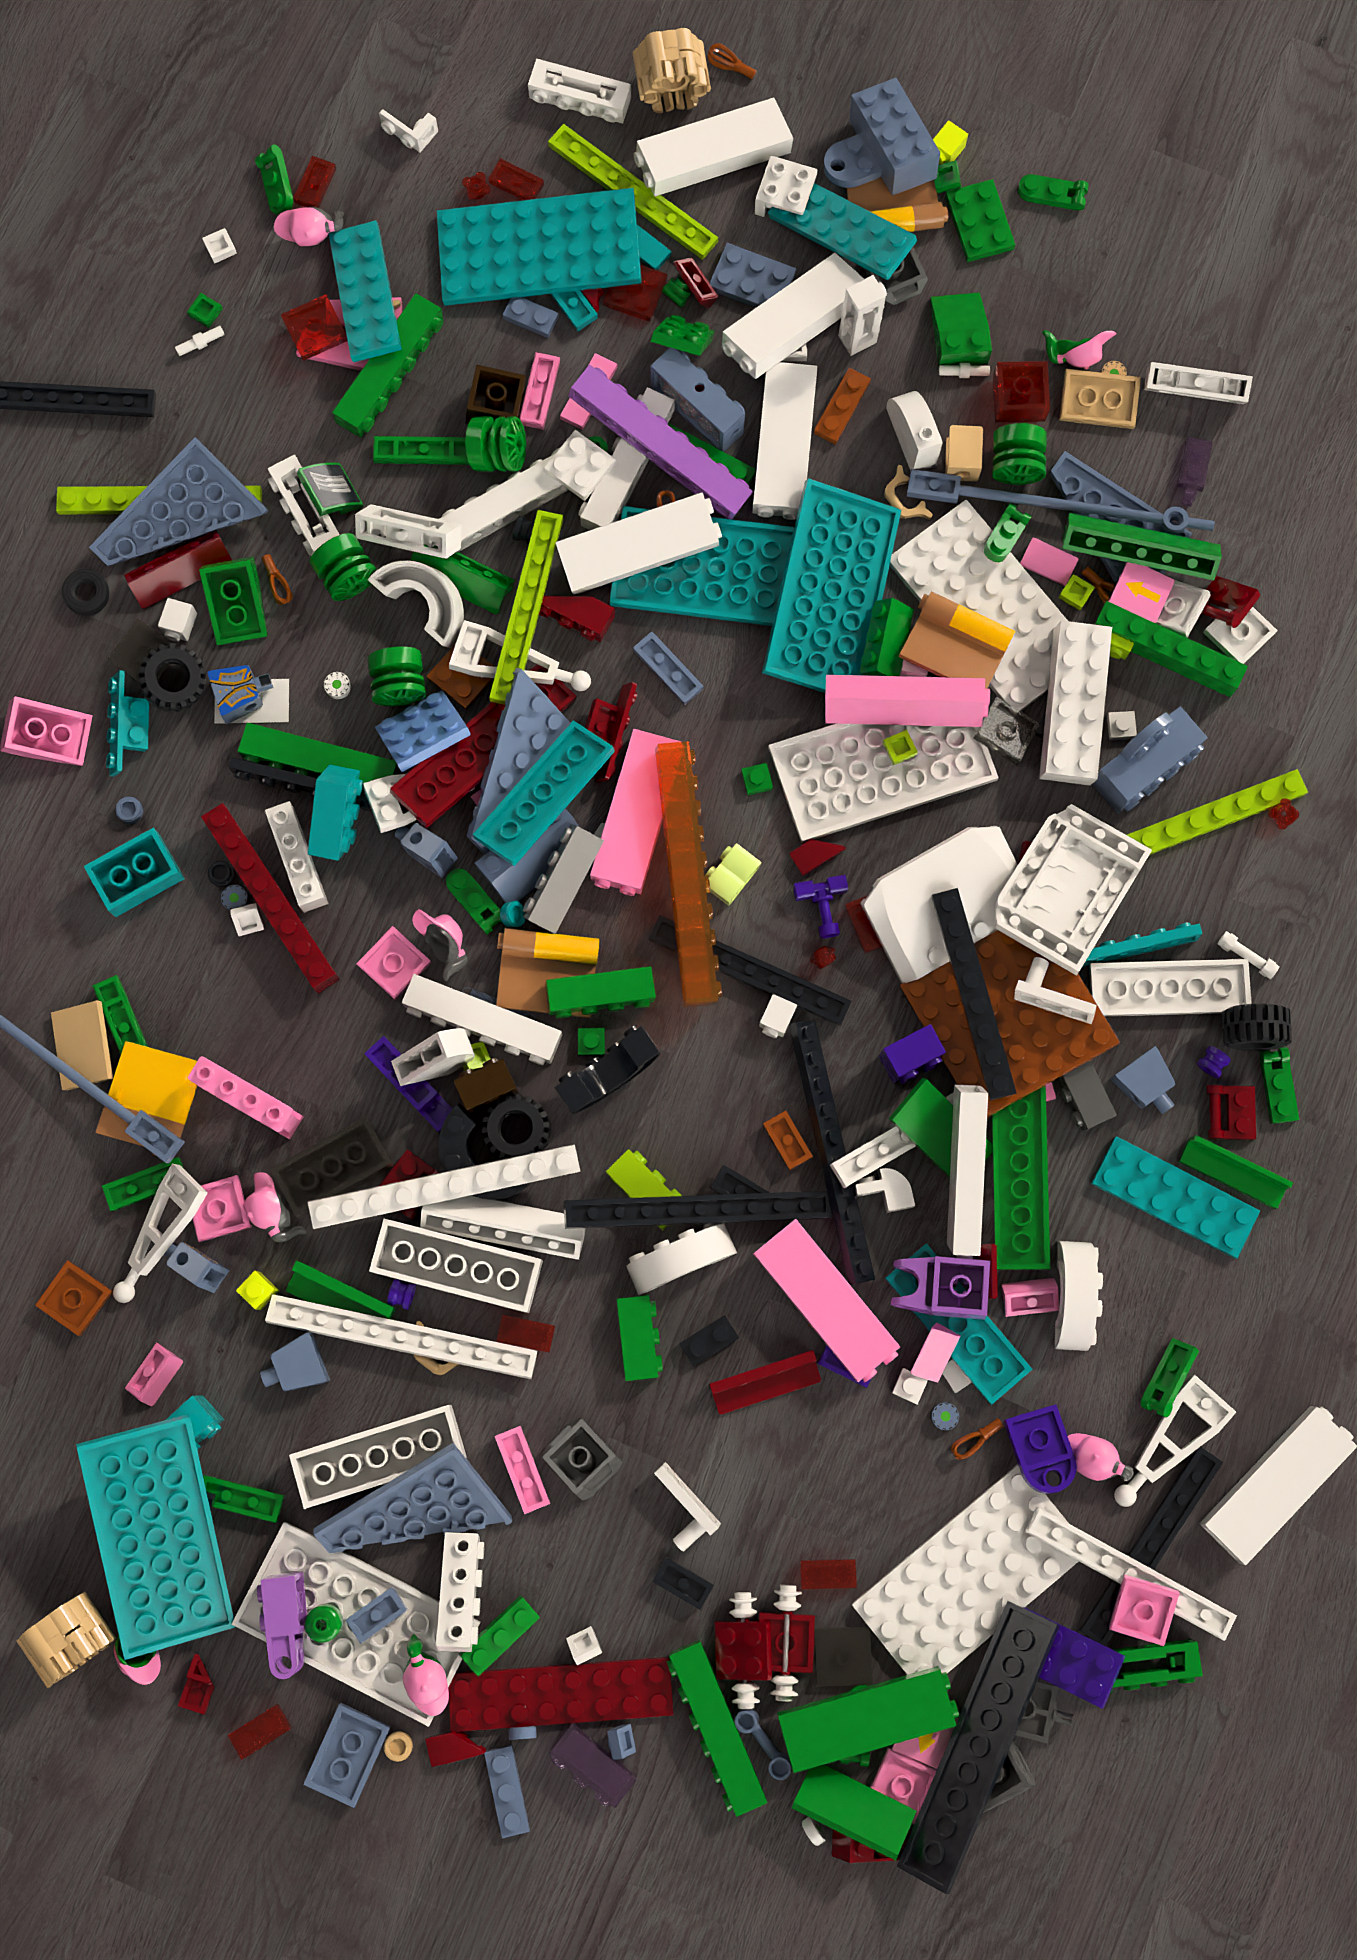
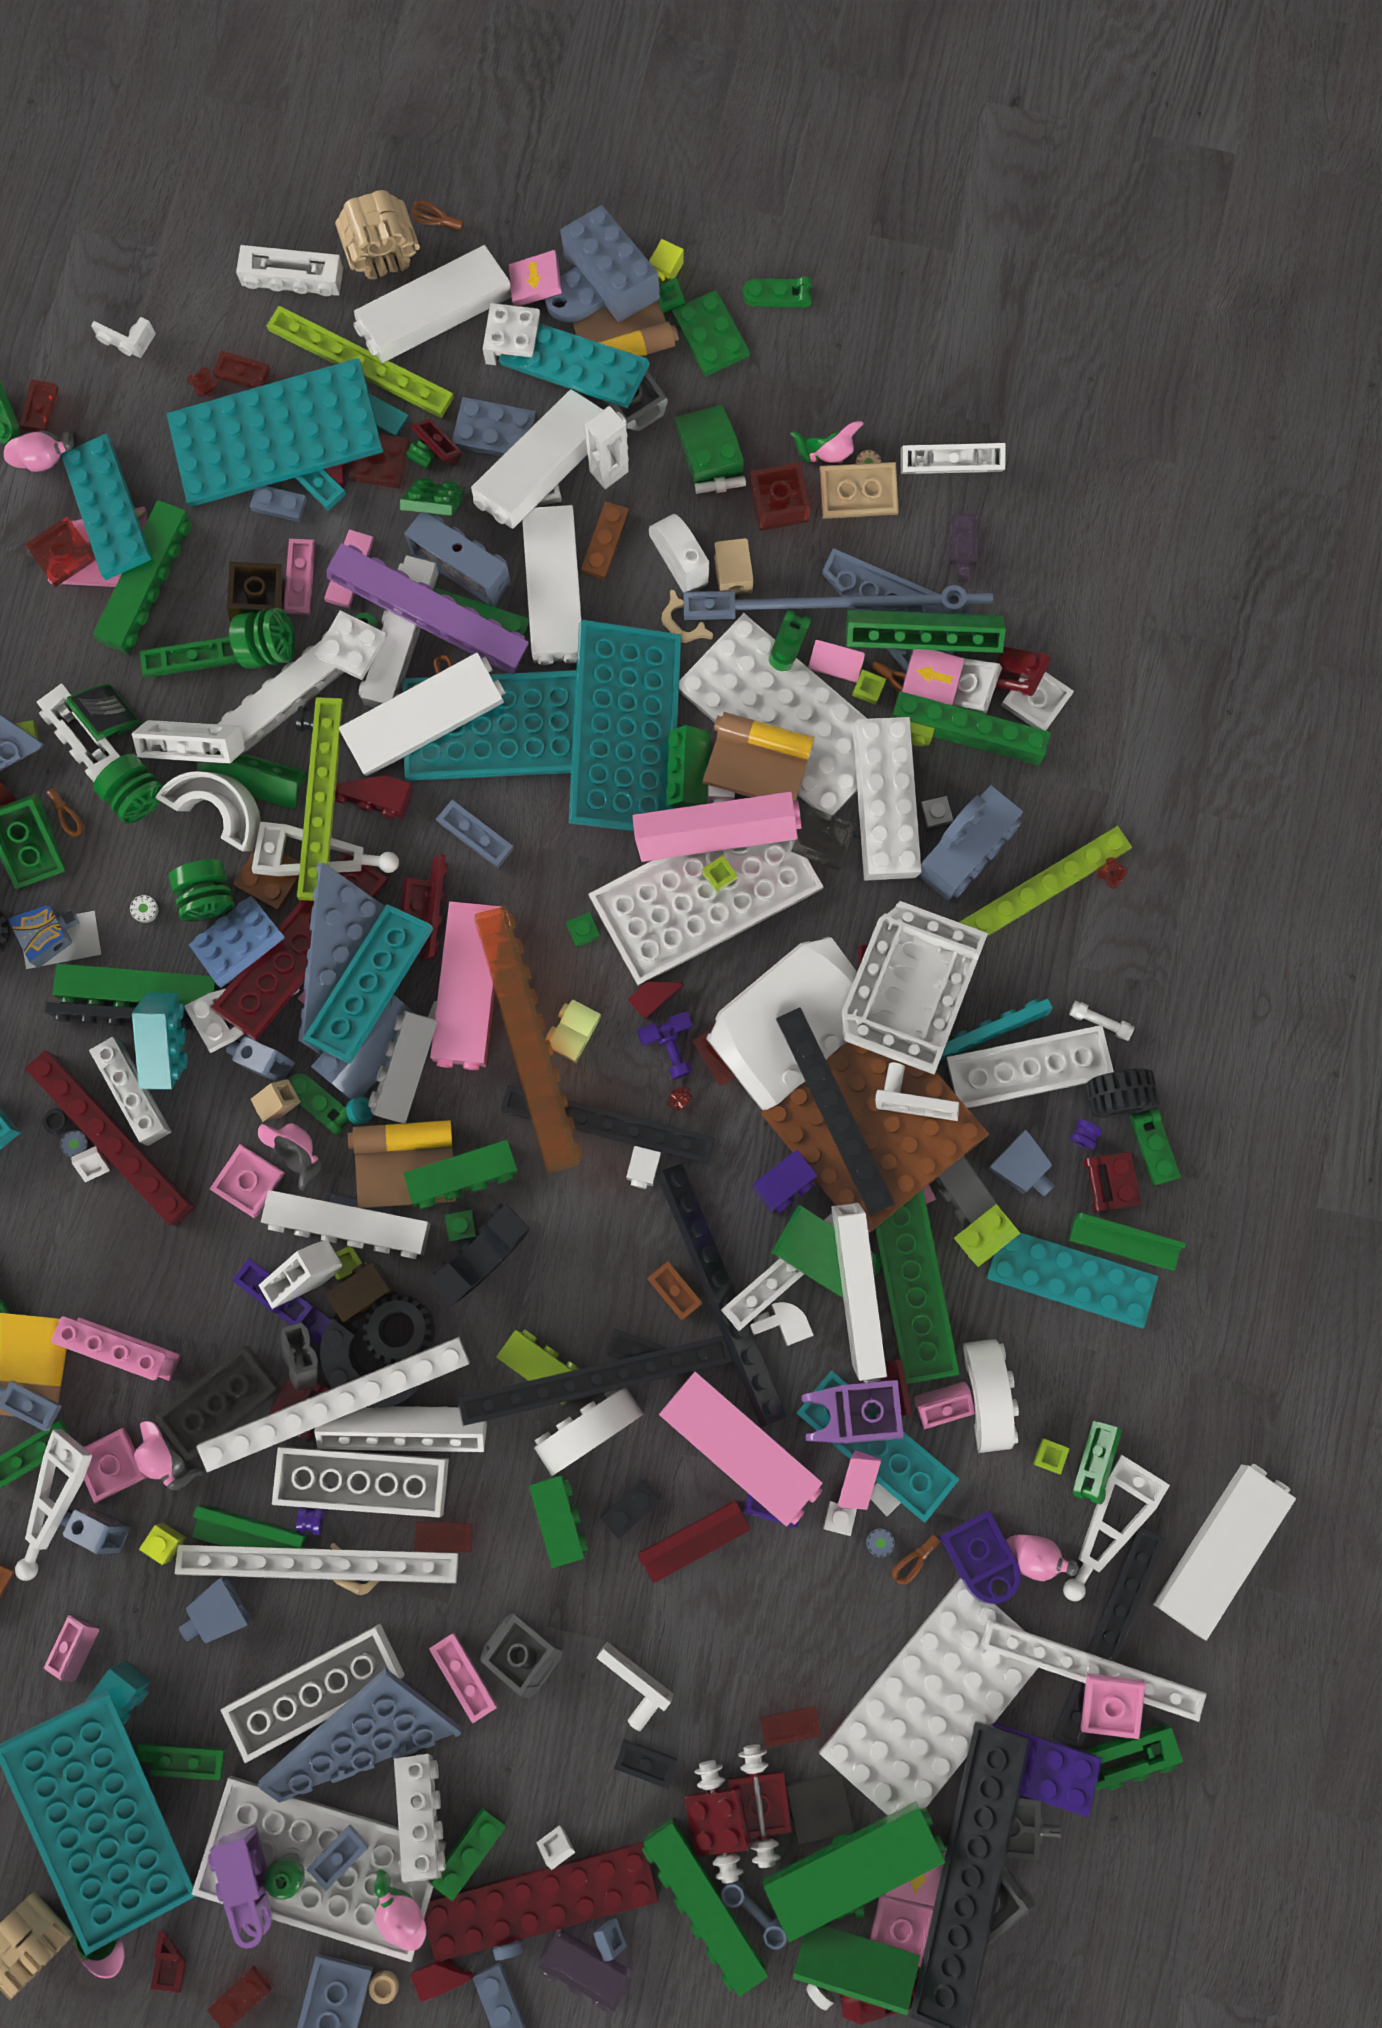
camera: 10 degrees left, 0 degrees up
(417, 1137) = (299, 1356): none -> dark grey brick
(434, 890) = (275, 1100): none -> tan brick
(817, 138) = (535, 278): none -> bright pink tile
(1019, 454) = (788, 559): green wheel -> none
(1100, 1140) = (987, 1235): none -> lime brick
(1125, 1364) = (1051, 1456): none -> lime plate

